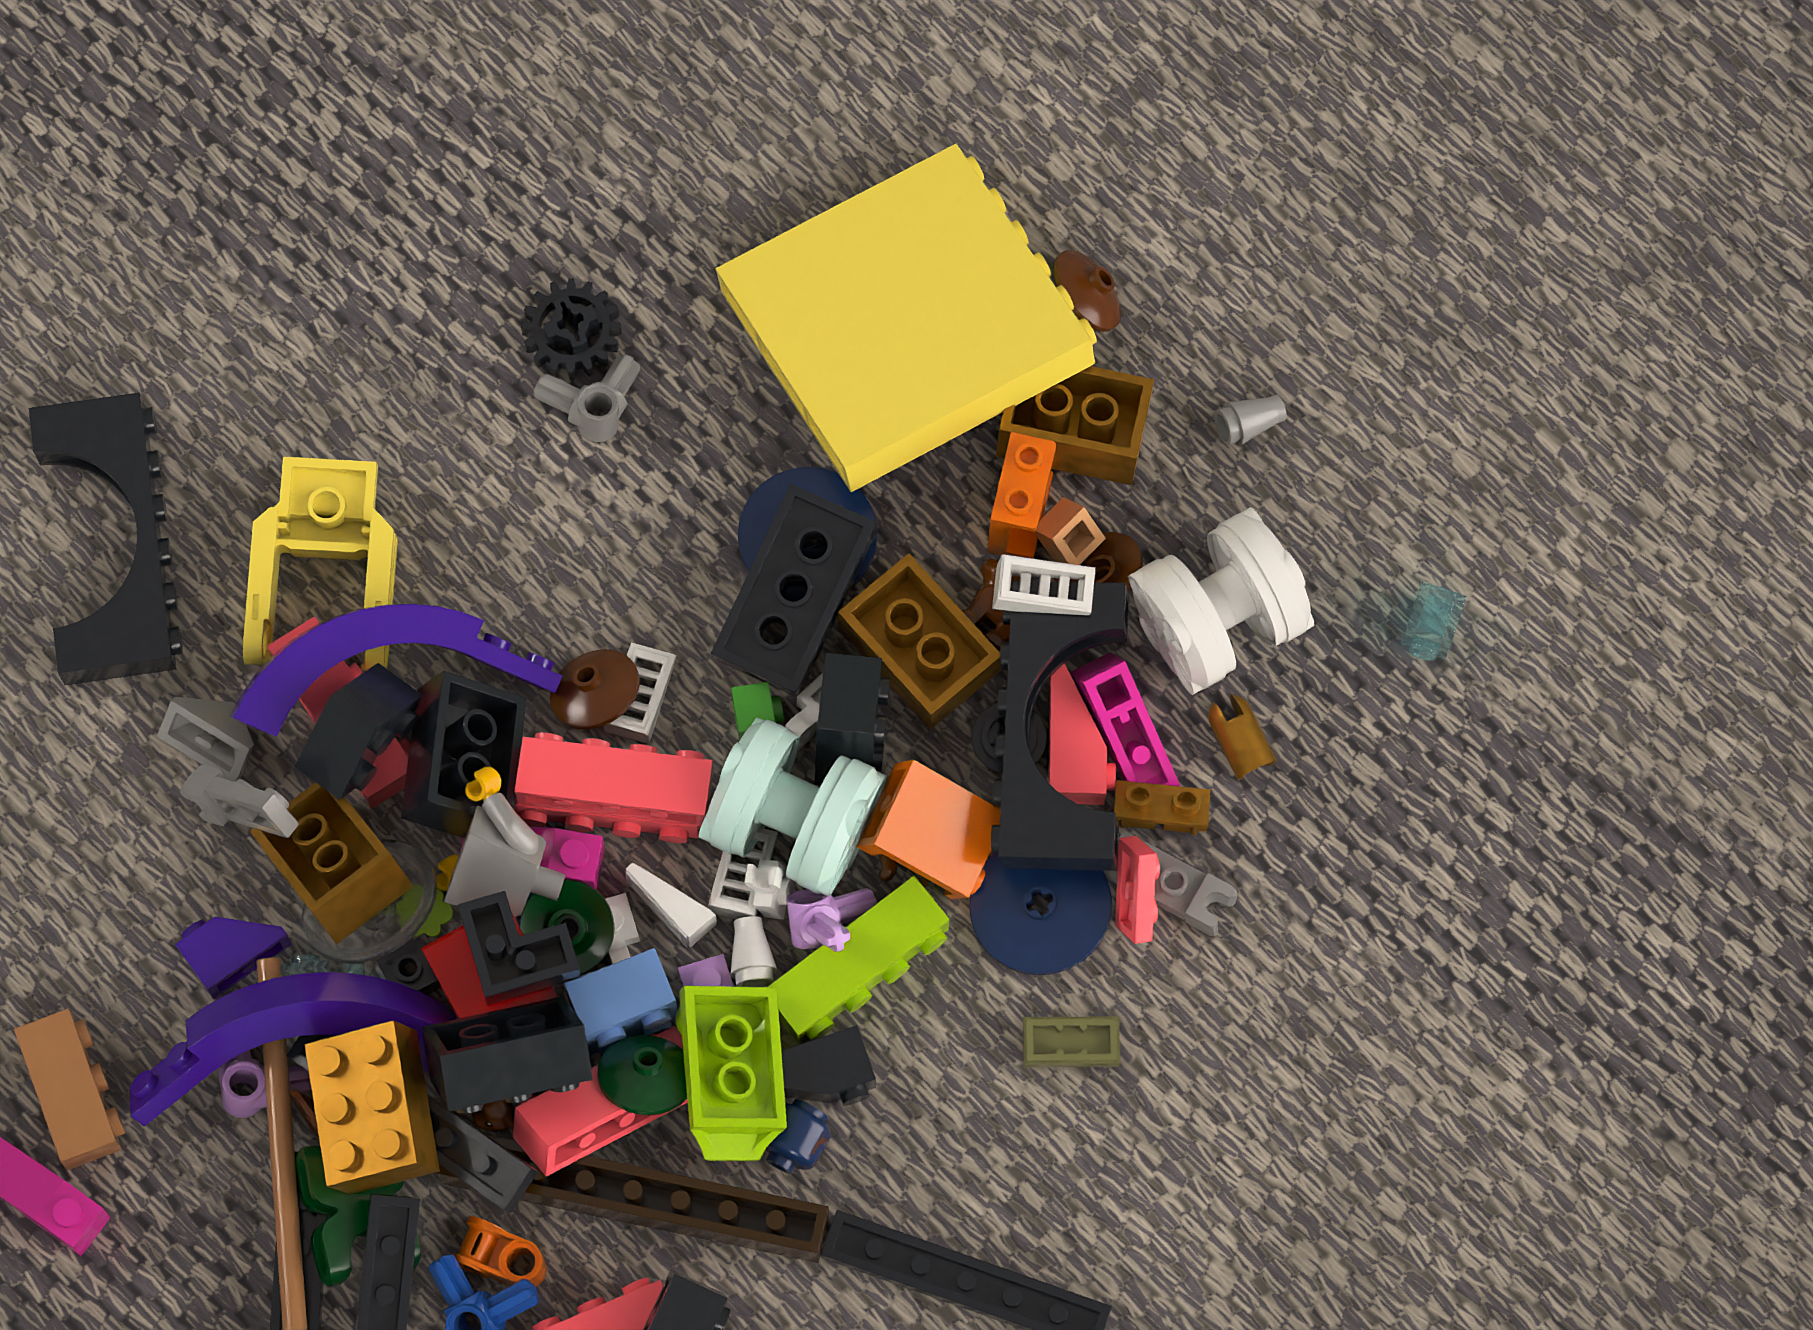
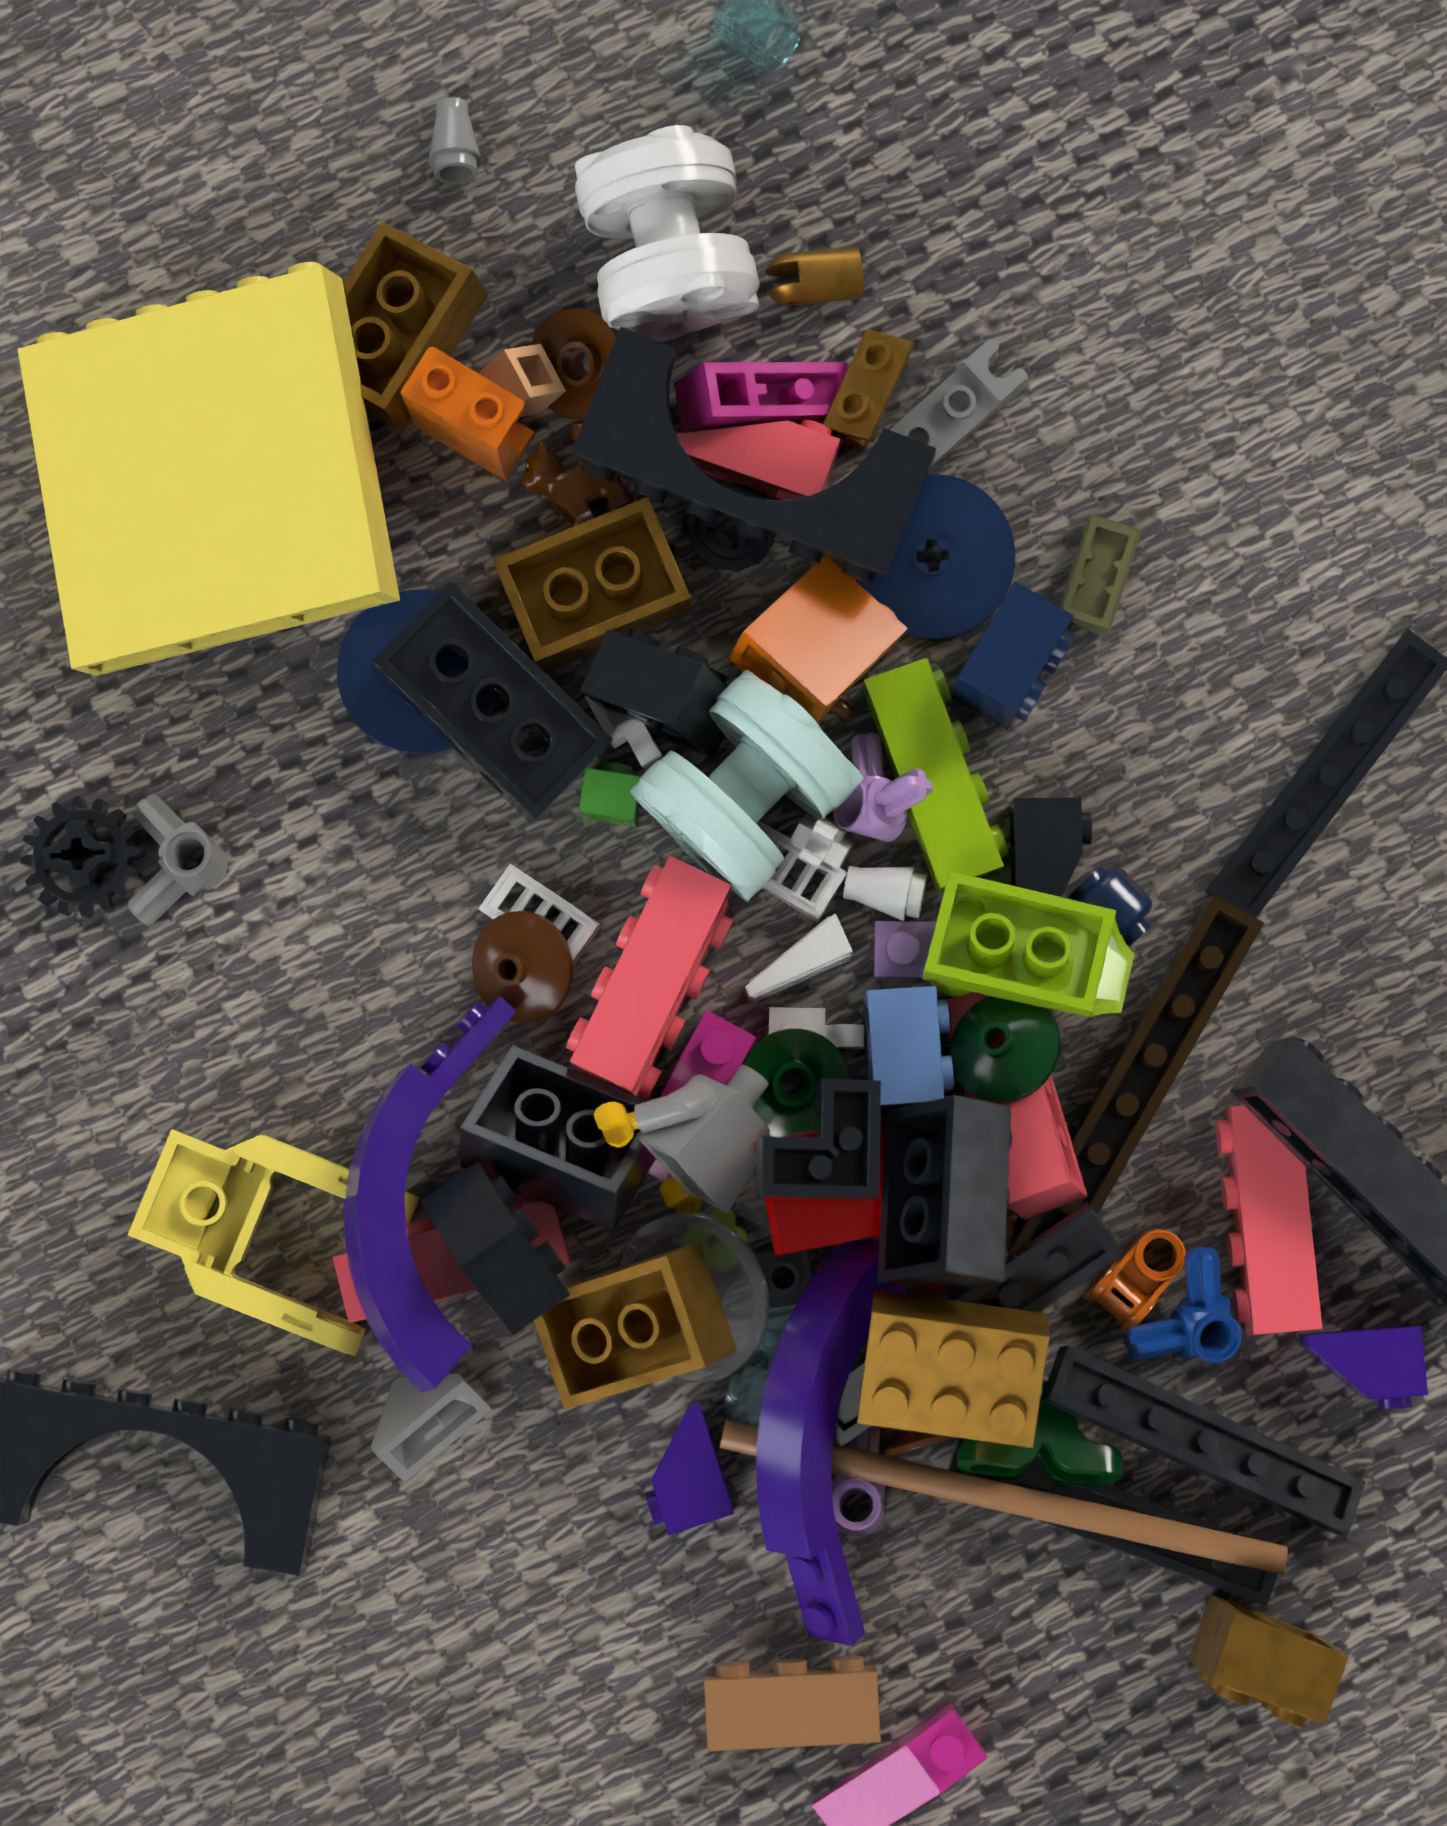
camera: 65 degrees left, 10 degrees up
(238, 802) = (514, 1428): light grey plate -> none
(972, 987) = (1011, 655): none -> dark blue brick
(1045, 570) = (575, 462): white slope -> none
(1089, 289) = (242, 257): reddish brown dish -> none
(1136, 889) = (962, 443): coral plate -> none

